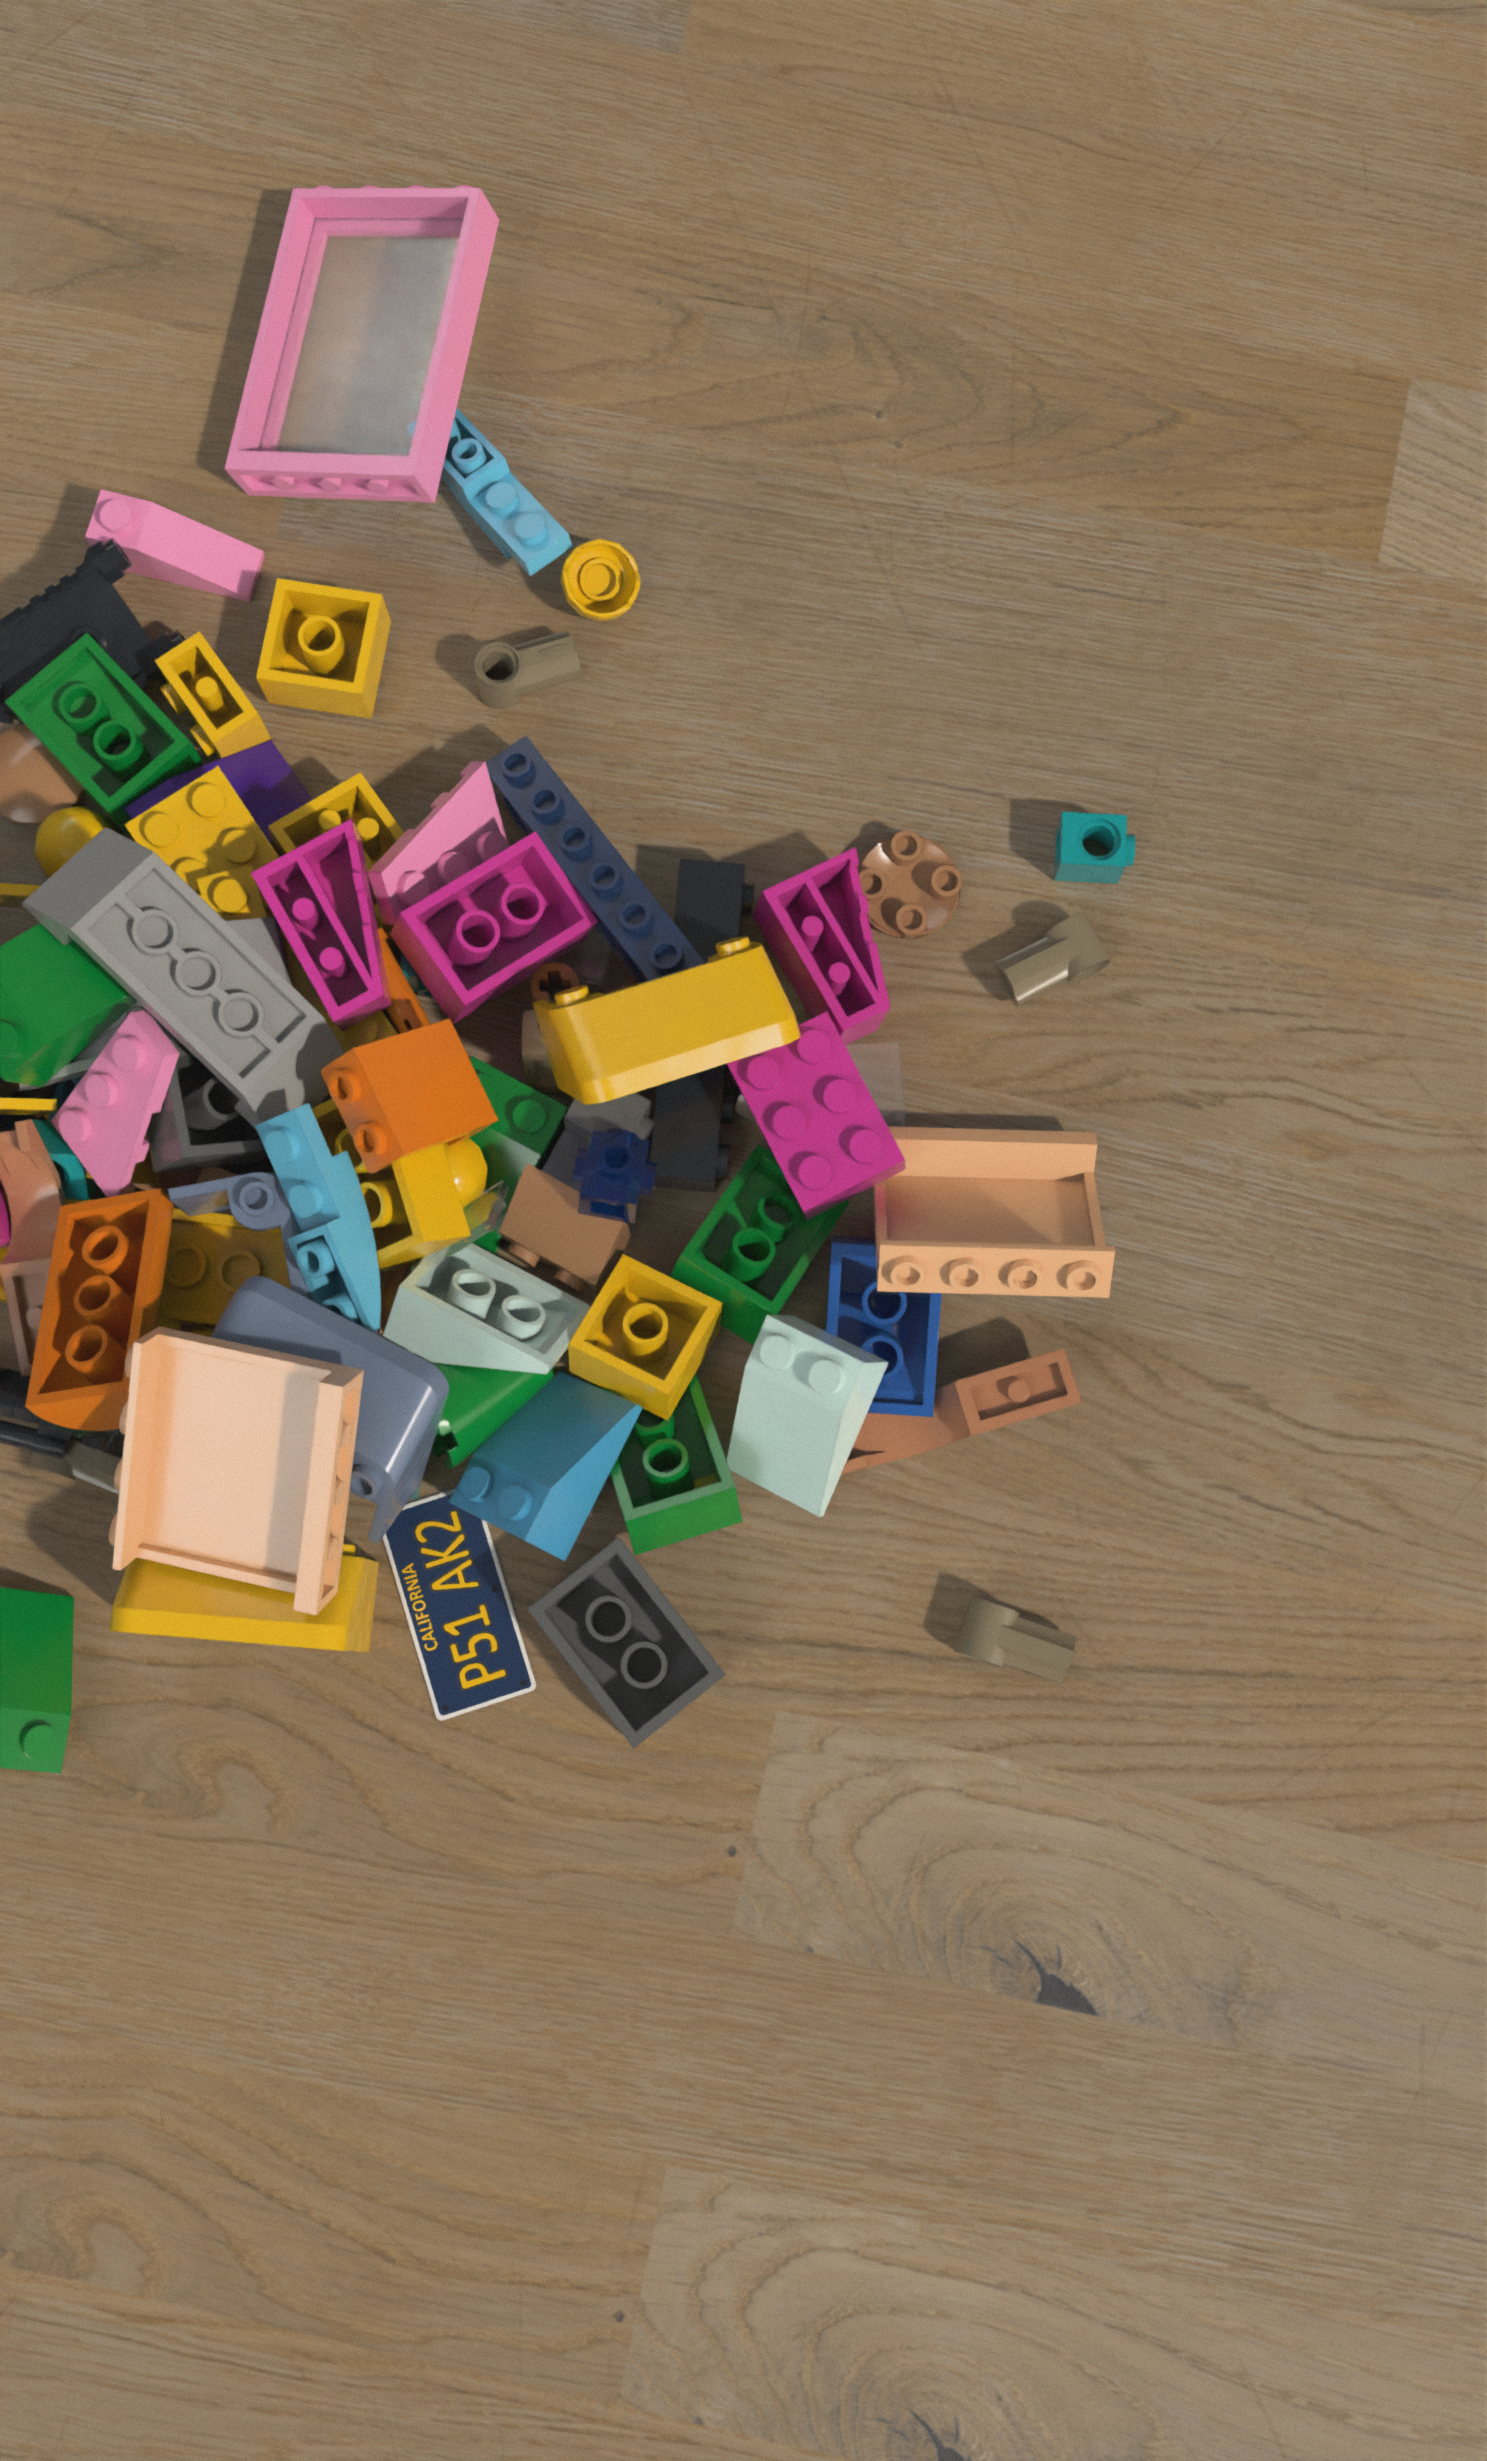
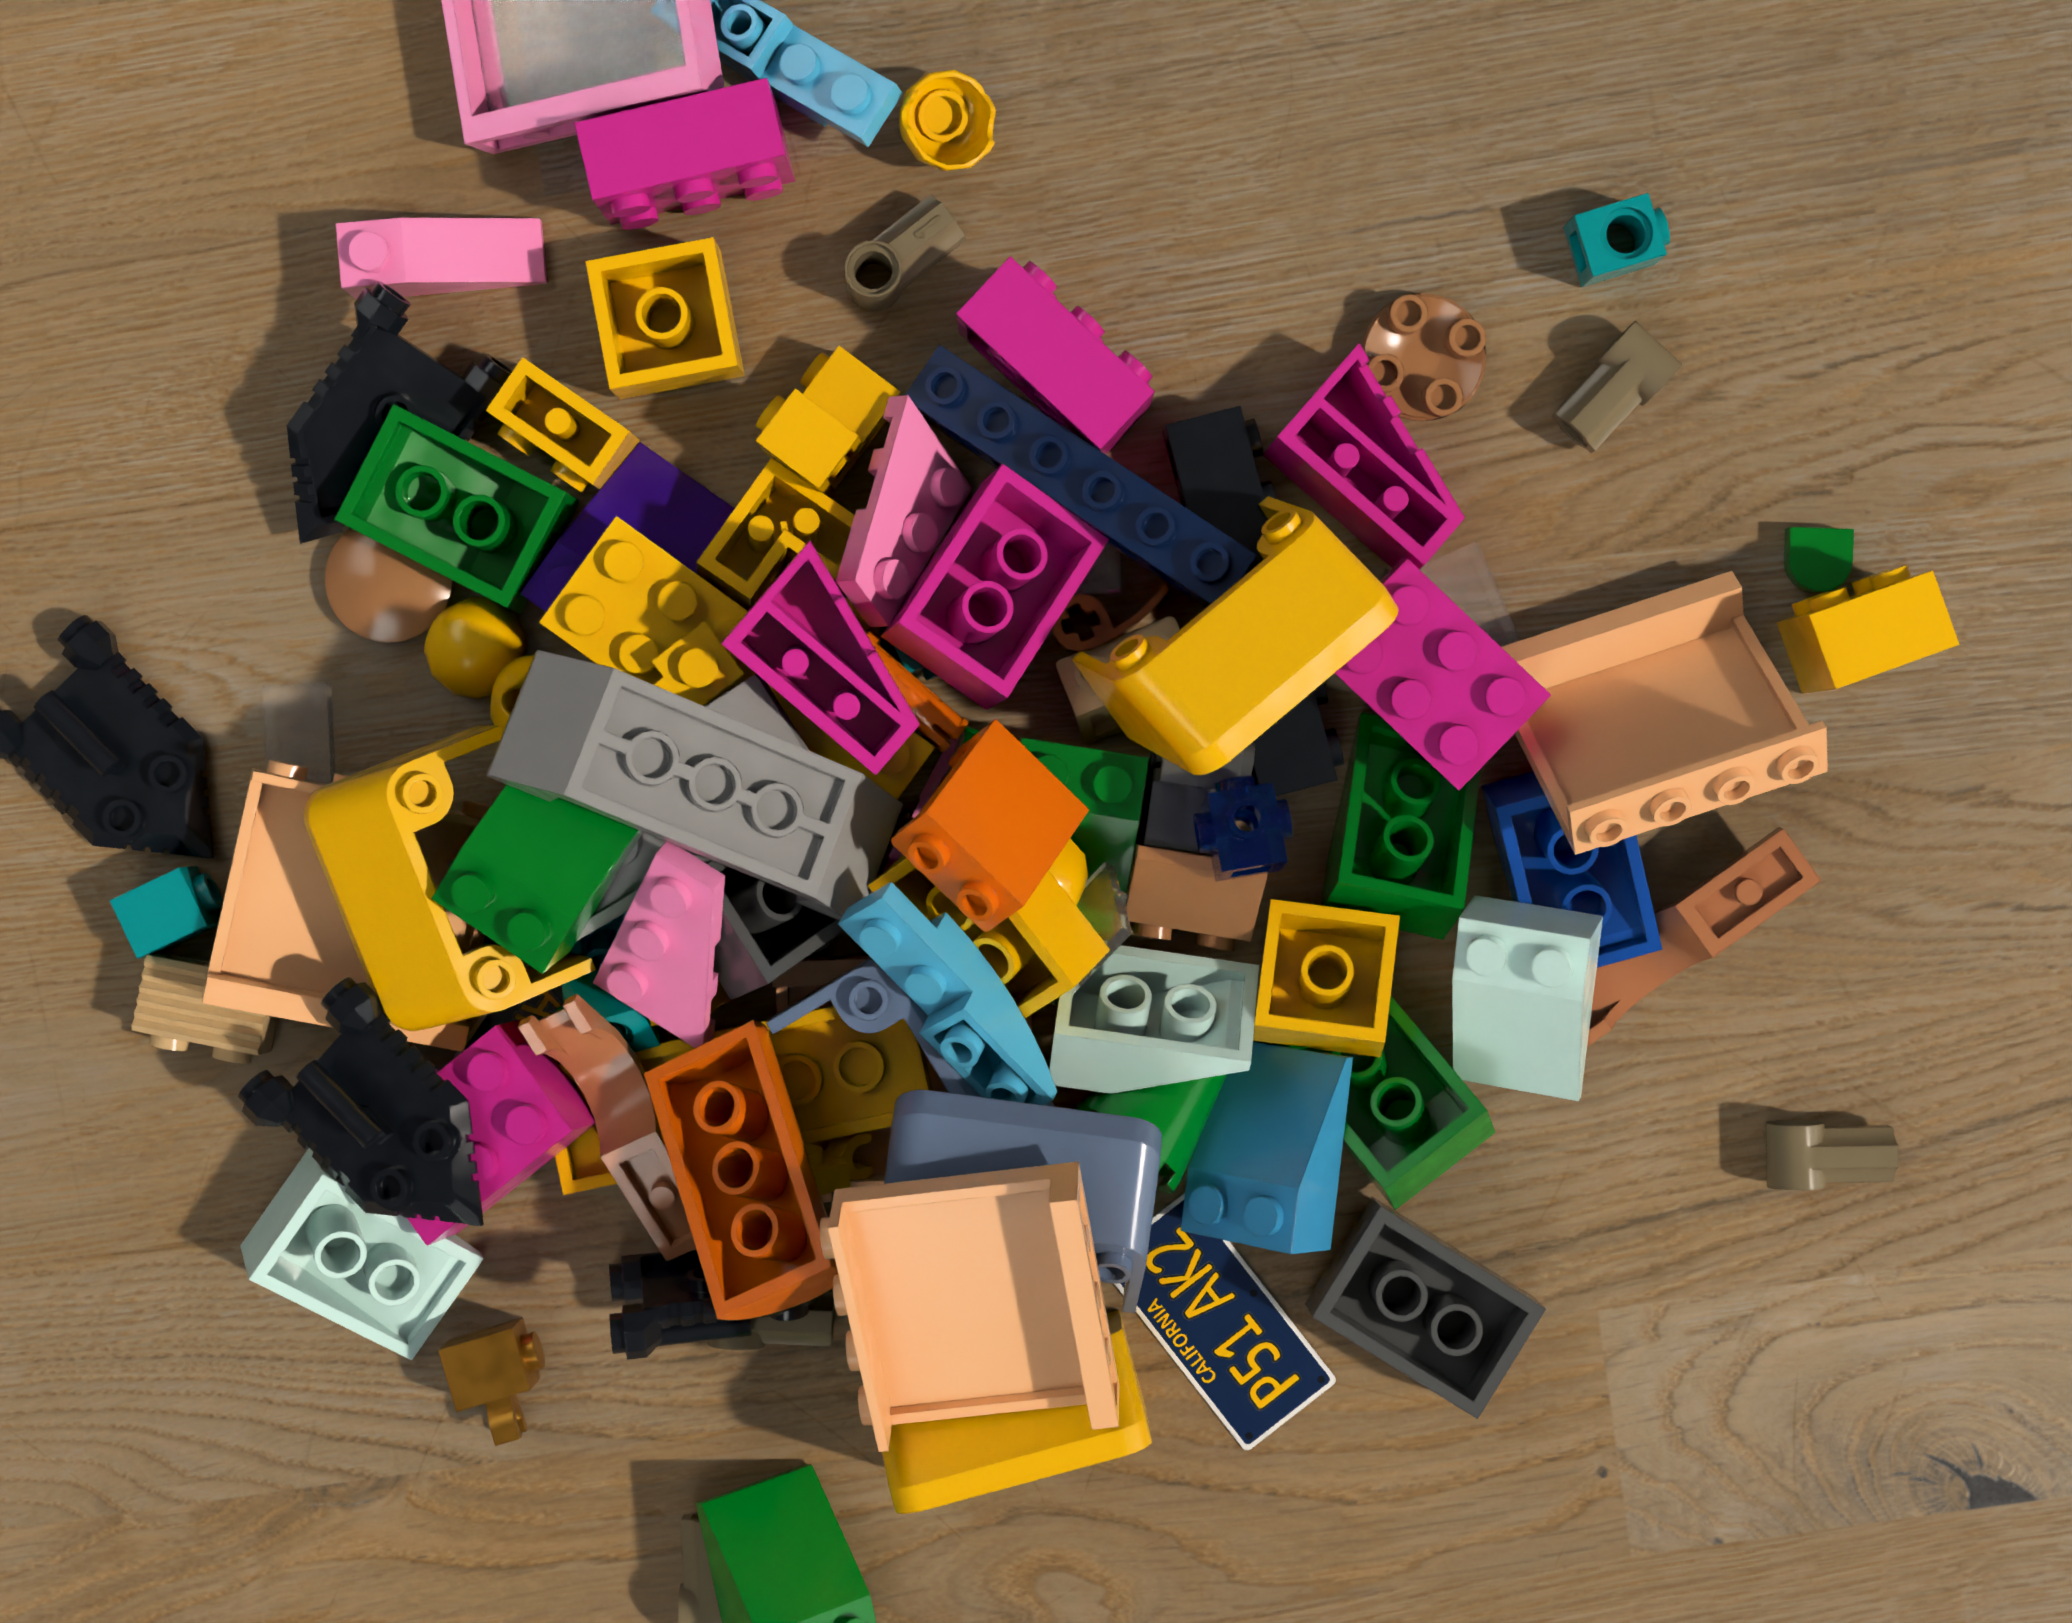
camera: 20 degrees left, 10 degrees up
(388, 531) = (686, 154): none -> dark pink brick
(413, 768) = (829, 424): none -> yellow brick
(614, 774) = (1055, 355): none -> dark pink brick
(1172, 1152) = (1818, 557): none -> green tile
(1188, 1213) = (1857, 636): none -> yellow brick

